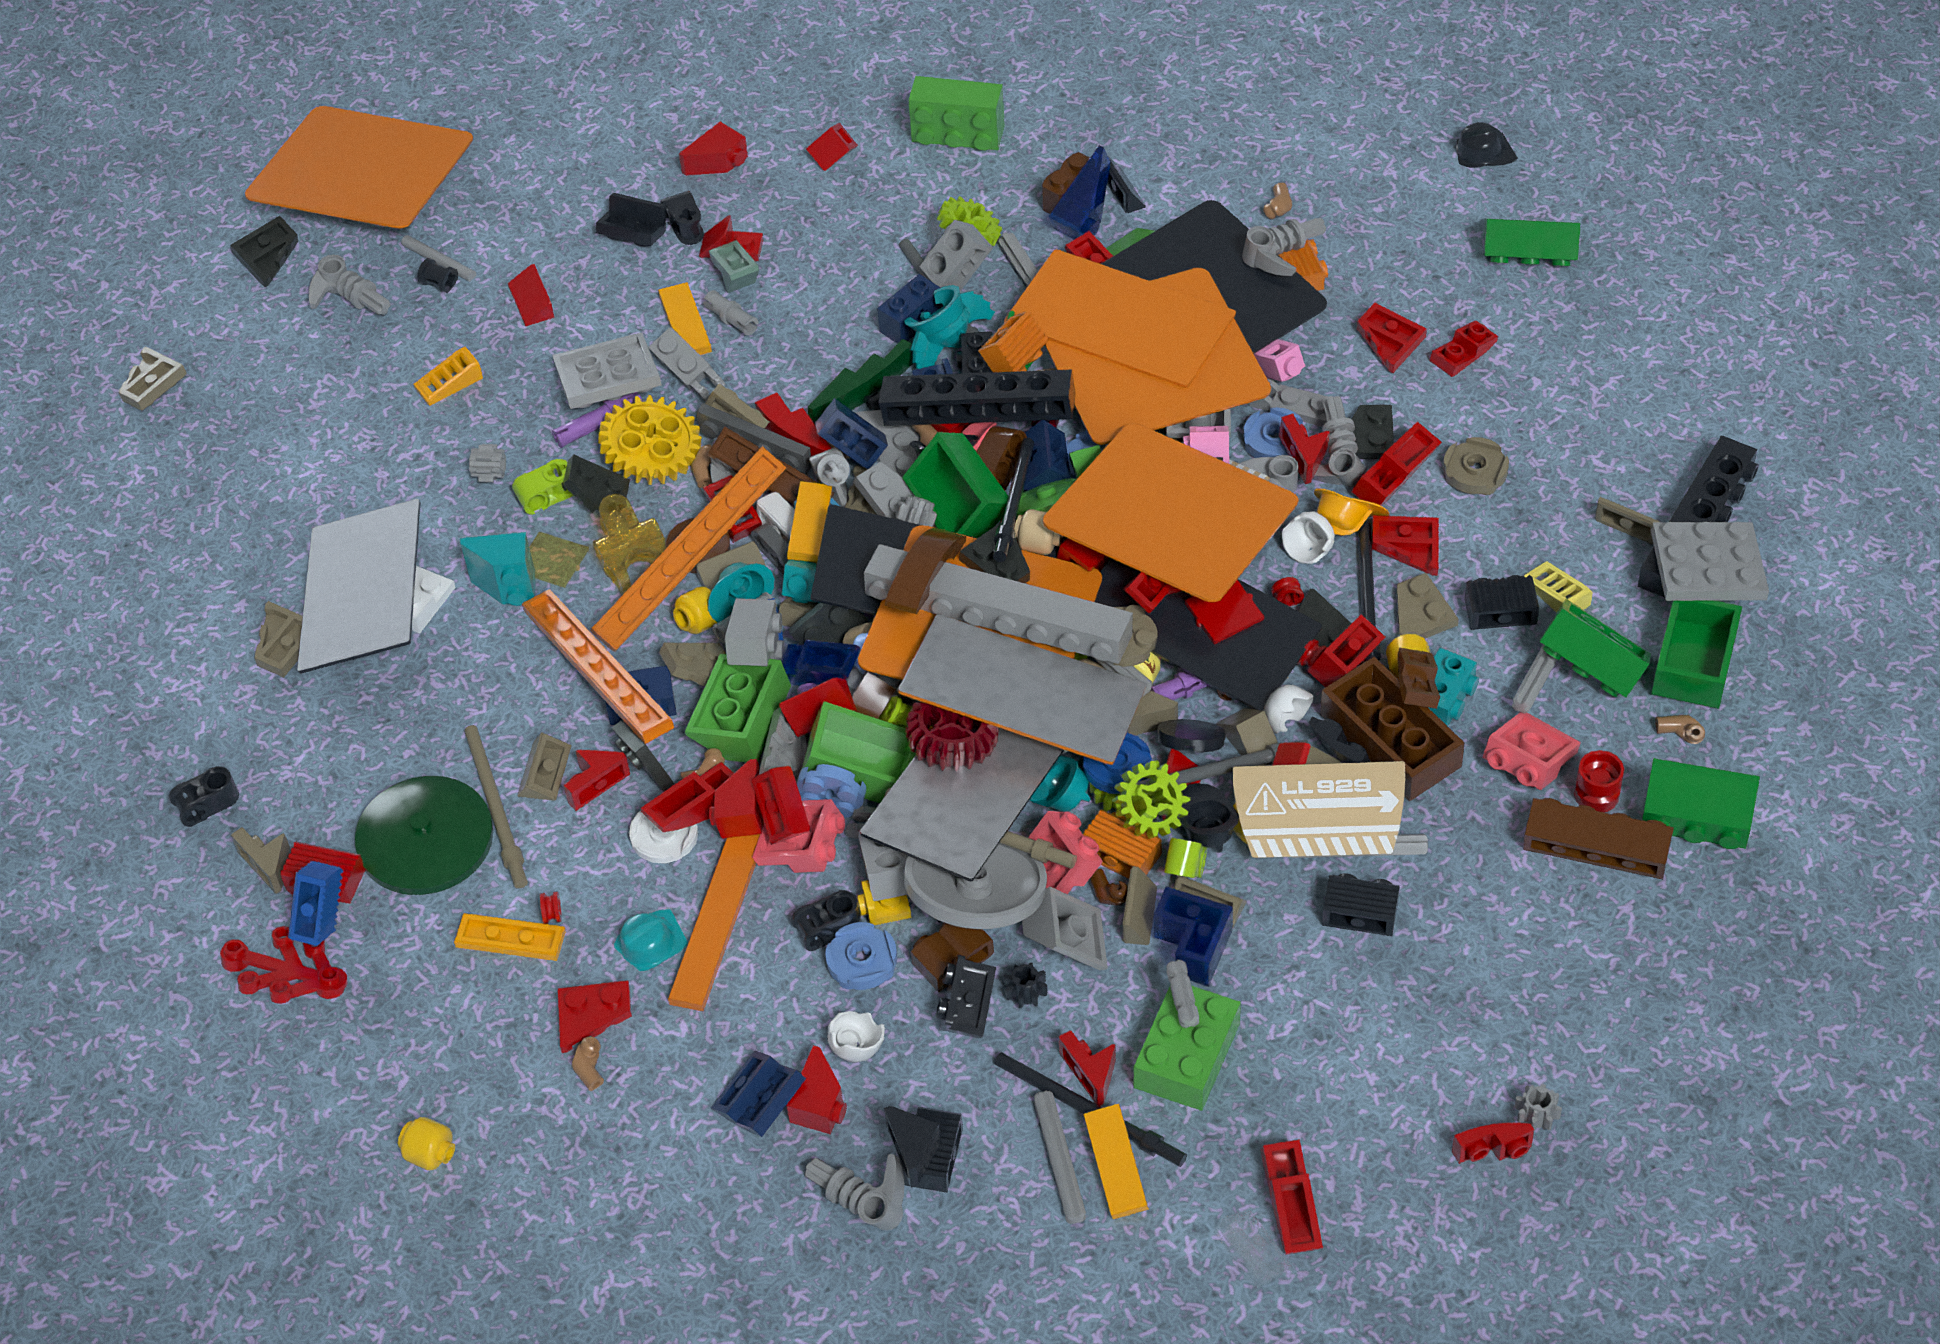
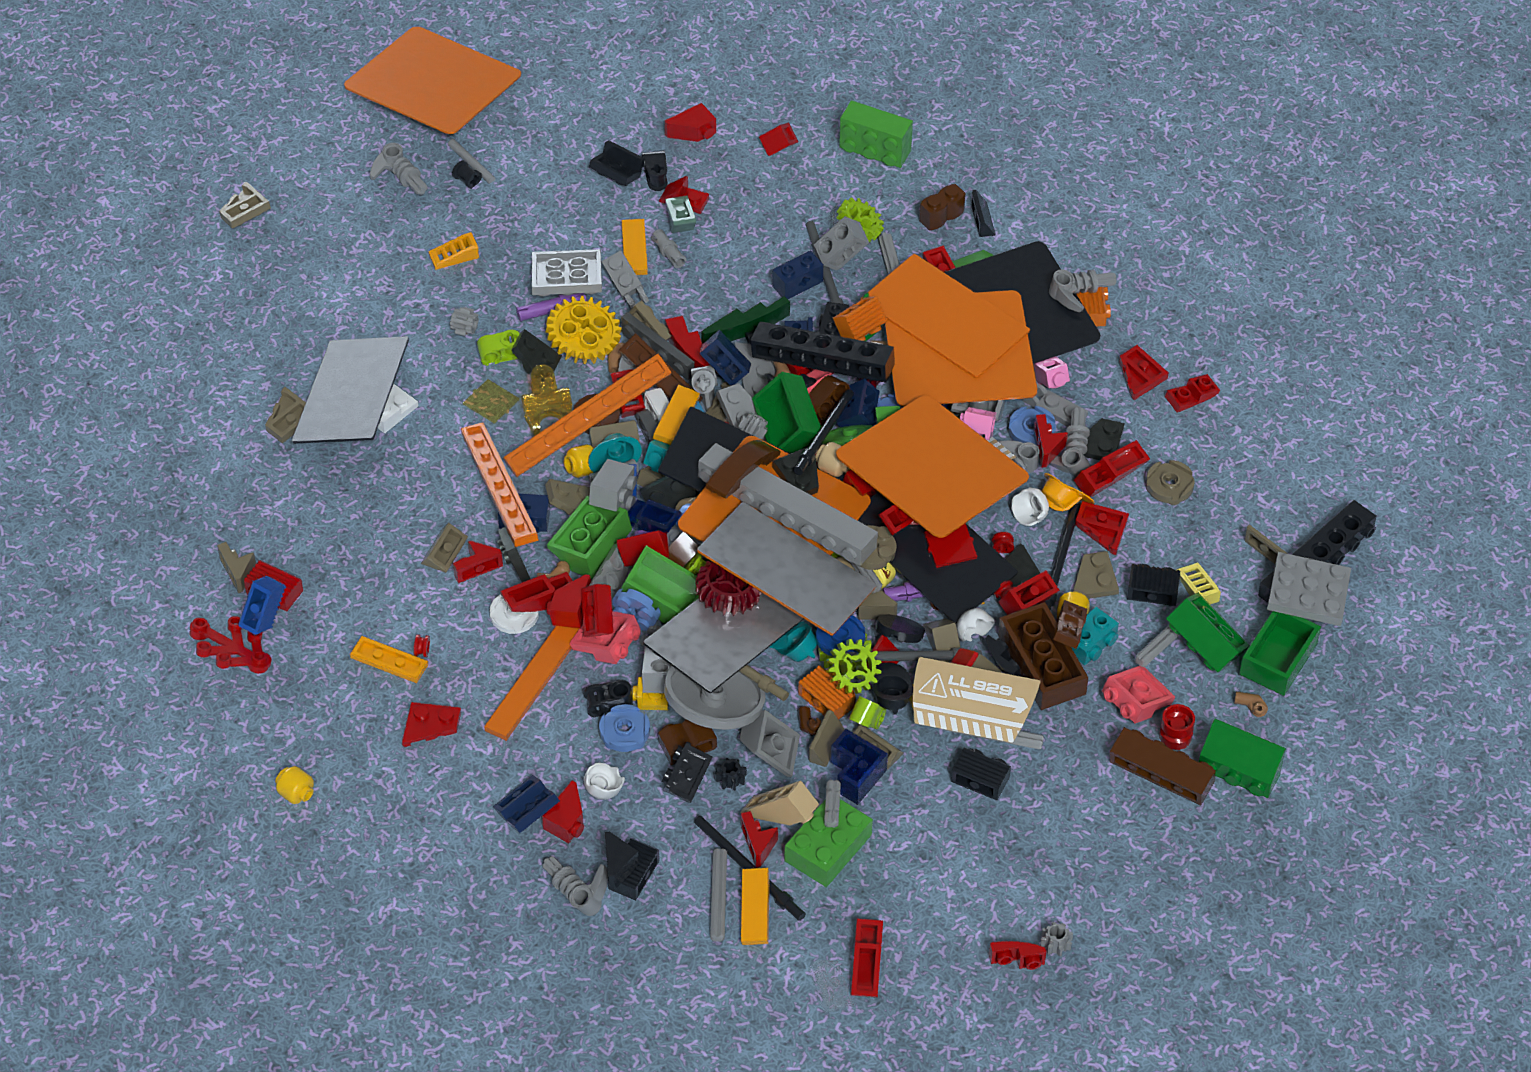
camera: 10 degrees right, 0 degrees up
(206, 795) = (208, 513): black piece -> none
(266, 249) = (350, 127): pearl dark grey wing -> none
(424, 835) = (349, 575): dark green dish -> none
(501, 566) = (453, 398): teal slope -> none
(511, 854) = (405, 603): dark tan bar -> none
(531, 296) = (529, 205): red slope -> none
(585, 1062) = (417, 755): medium nougat arm -> none
(650, 939) = (484, 683): teal piece -> none
(946, 324) = (819, 292): teal helmet -> none
(1064, 833) = (787, 677): coral plate -> none
(1083, 202) = (947, 223): clear blue slope -> none
(1113, 1011) = (783, 805): none -> tan slope
(1280, 203) = (1095, 254): medium nougat arm -> none
(1483, 146) = (1260, 244): black piece -> none
(1531, 241) = (1268, 323): green slope -> none

